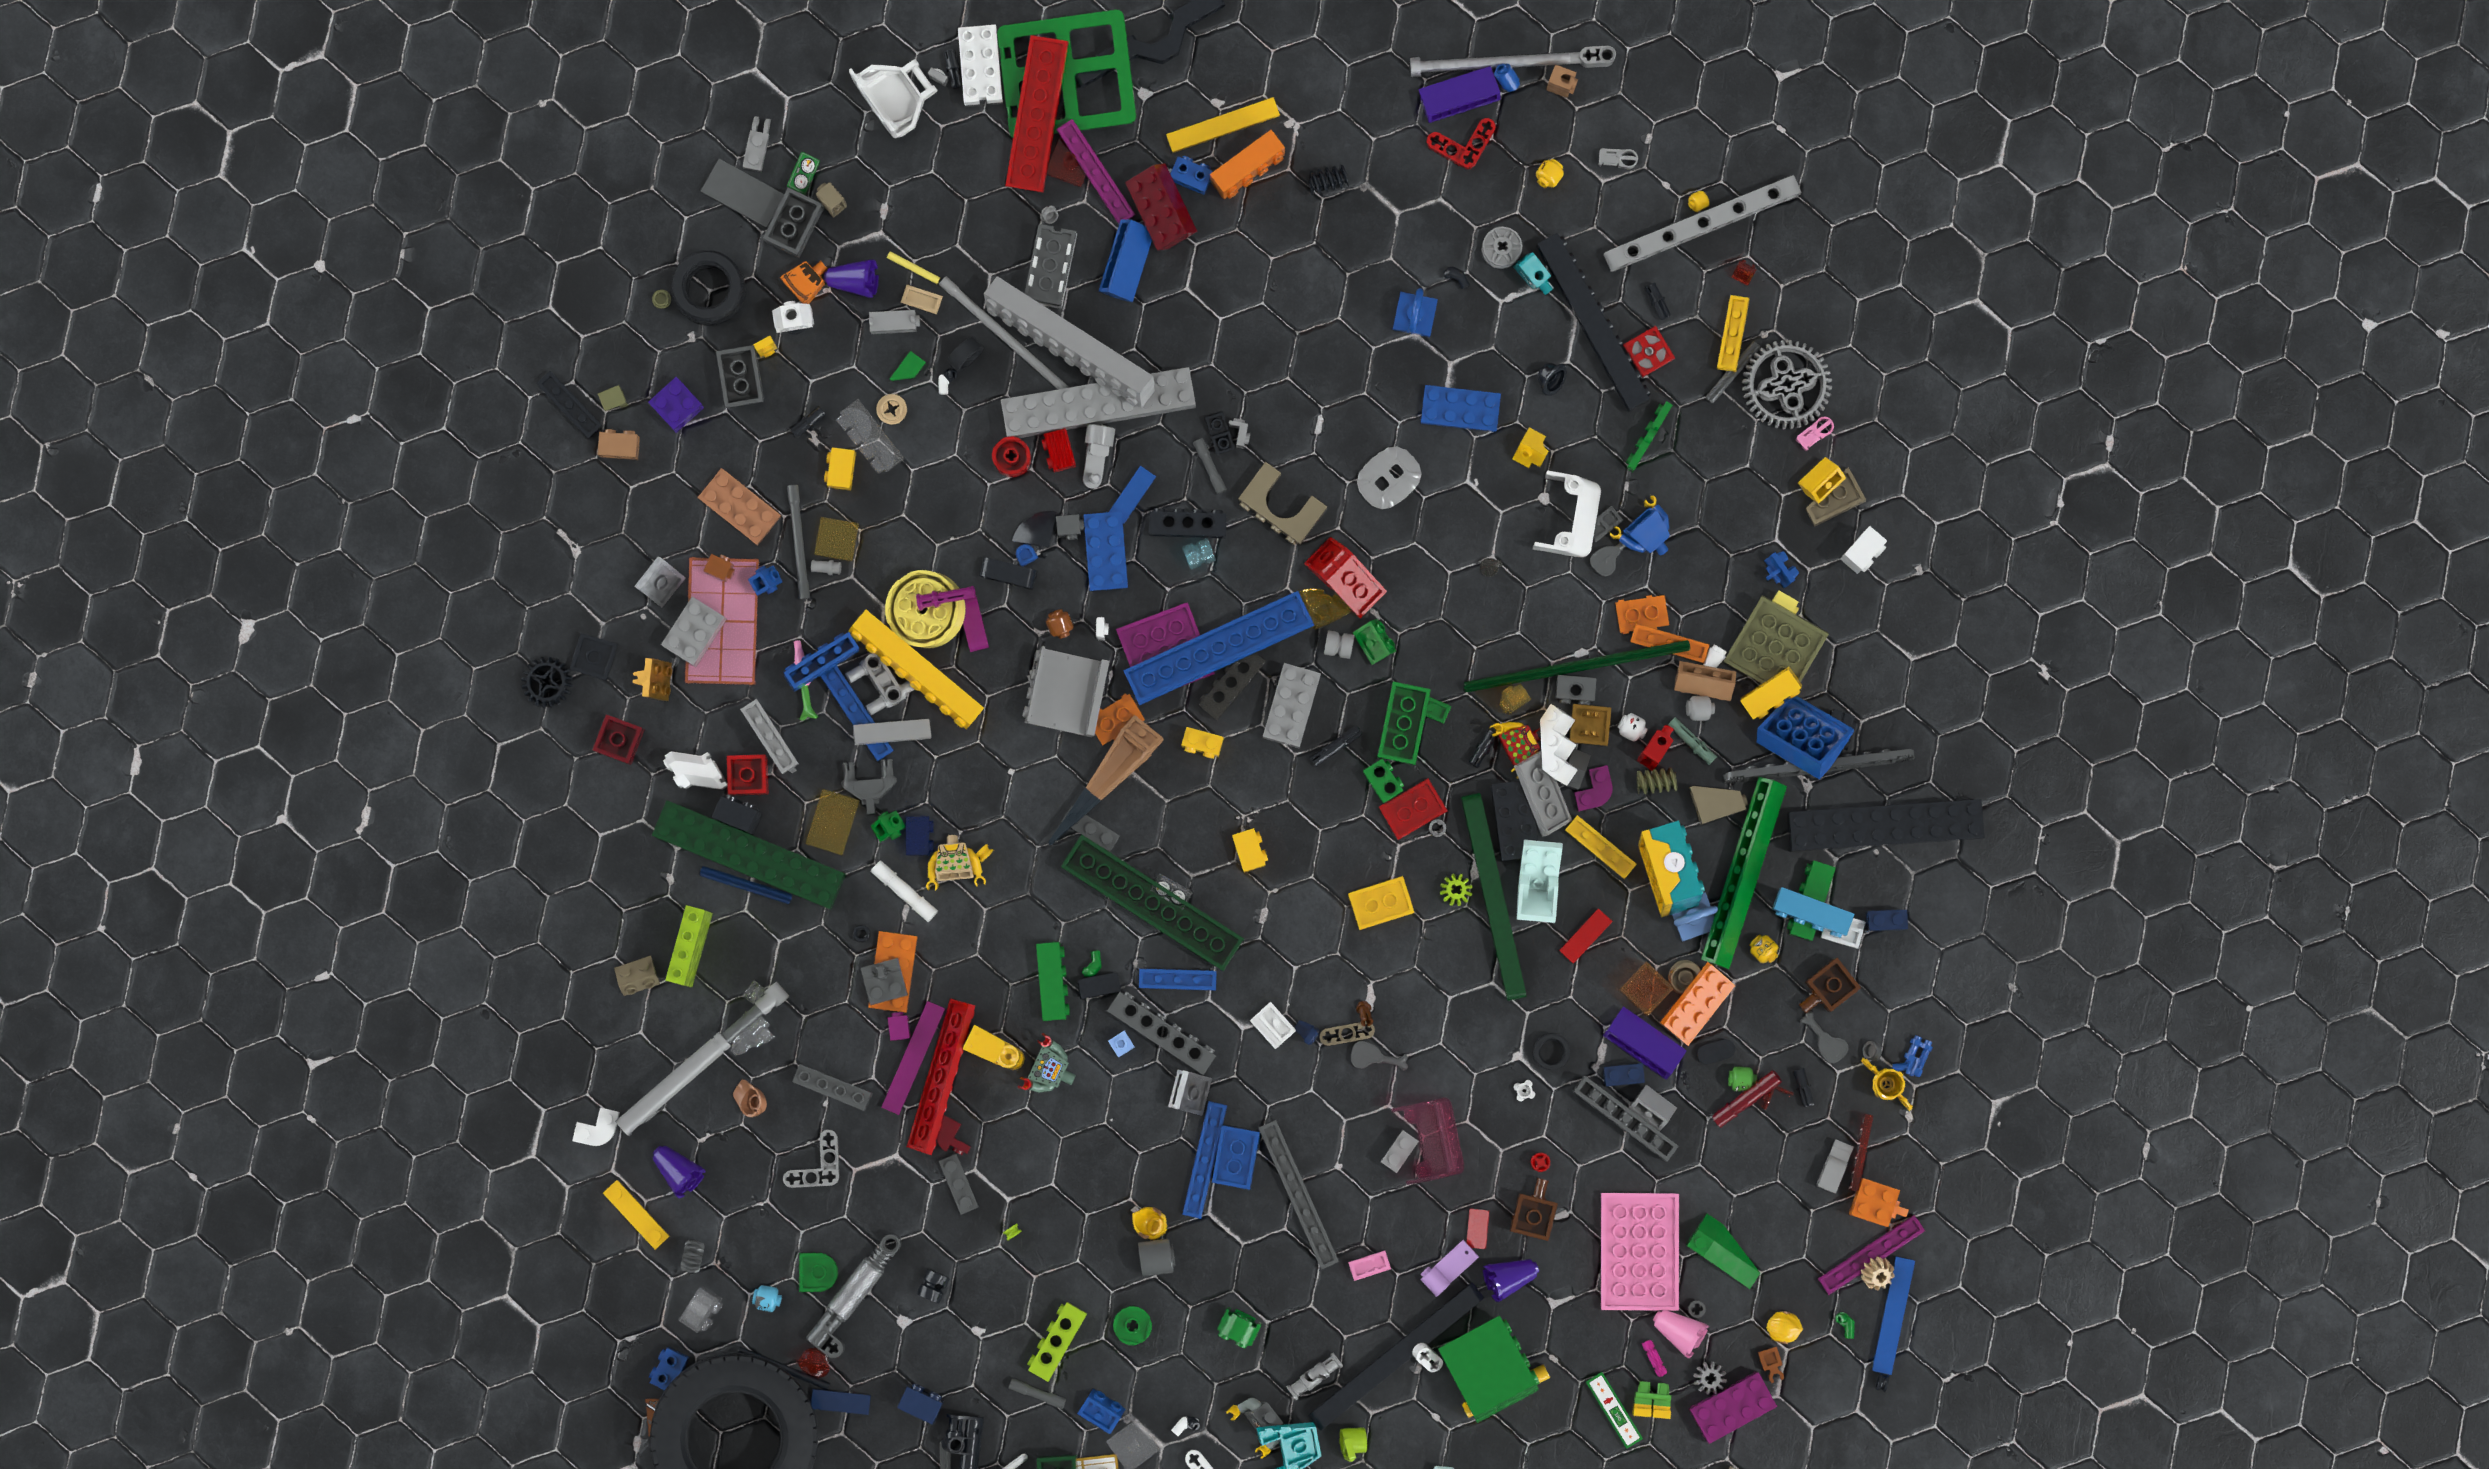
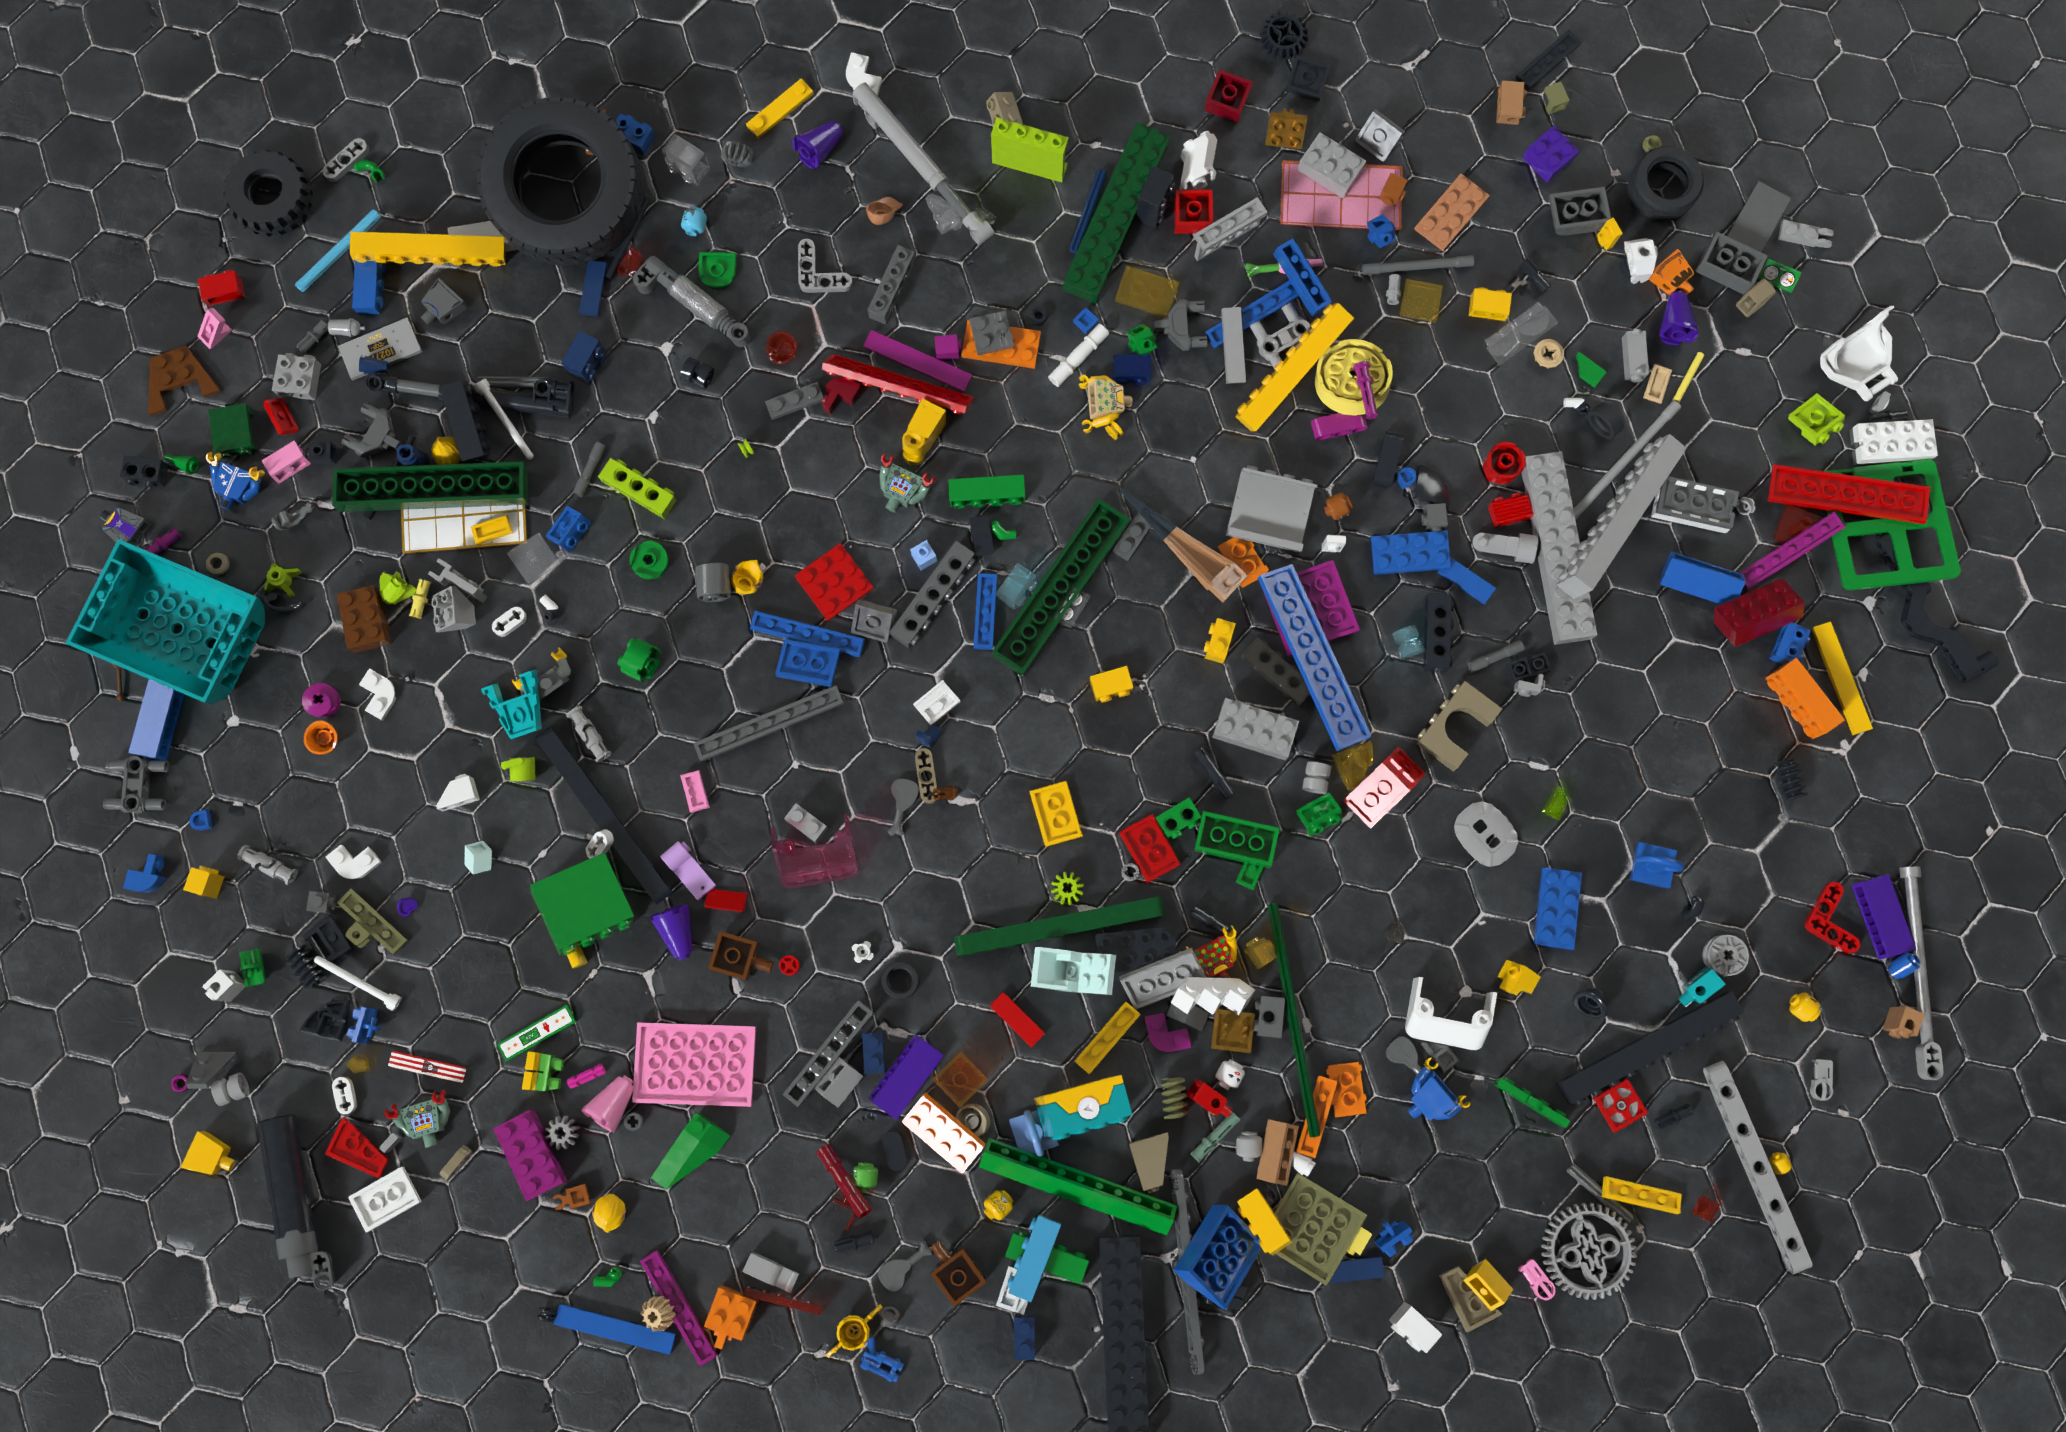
camera: 90 degrees right, 5 degrees down
(865, 884) = (1085, 320): none -> blue tile
(905, 1198) = (781, 347): none -> clear red helmet
(957, 140) = (1817, 419): none -> lime plate
(1150, 948) = (1016, 586): none -> clear light blue brick
(1150, 1135) = (834, 582): none -> red plate
(1356, 407) = (1556, 803): none -> clear neon green brick
(1812, 602) = (1359, 1270): none -> dark blue tile

